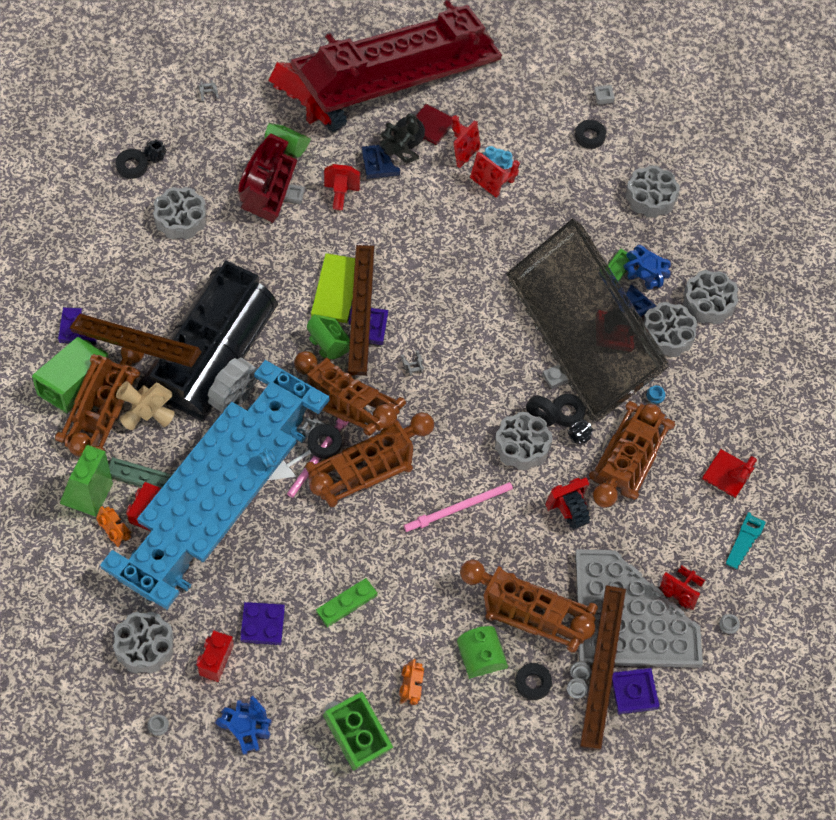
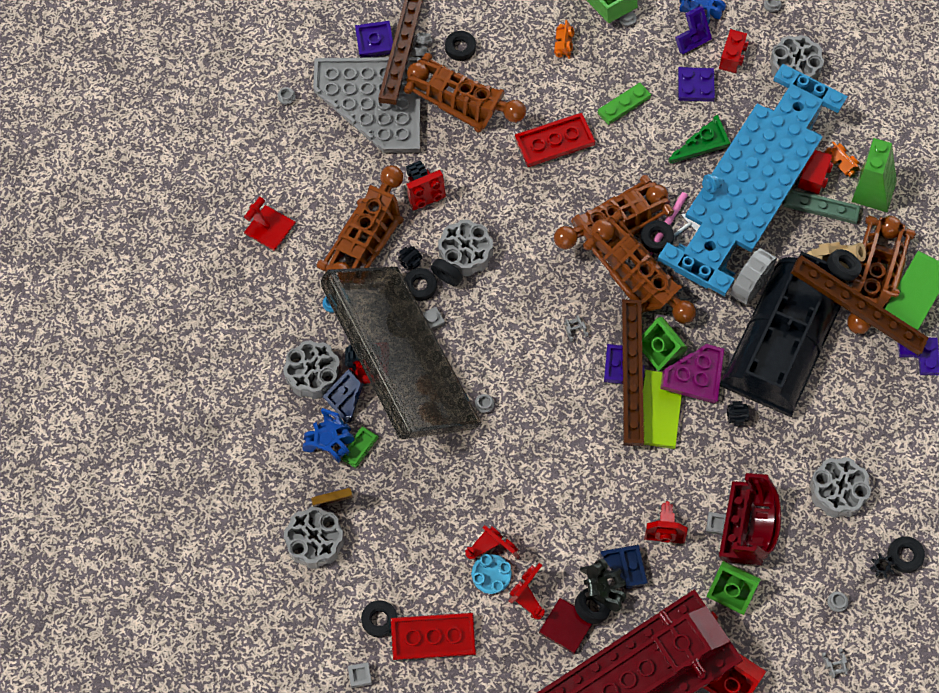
camera: 175 degrees left, 5 degrees up
(135, 364) = (849, 259): none -> black tyre
(198, 131) = (837, 601): none -> light grey plate
(257, 681) = (698, 31): none -> dark purple plate
(260, 551) = (707, 140): none -> green wing
(265, 275) = (738, 413): none -> black gear
(297, 308) = (696, 374): none -> magenta plate
(423, 521) = (558, 174): bright pink bar -> none
(426, 558) = (554, 139): none -> red plate
(481, 651) = (503, 64): bright green brick -> none
(502, 297) = (484, 403): none -> light grey plate
(545, 117) = (433, 636): none -> red plate
(639, 213) = (331, 497): none -> pearl gold tile
(681, 591) = (330, 110): red plate -> none
(710, 297) = (251, 412): light grey connector -> none
(745, 540) = (261, 169): teal piece -> none

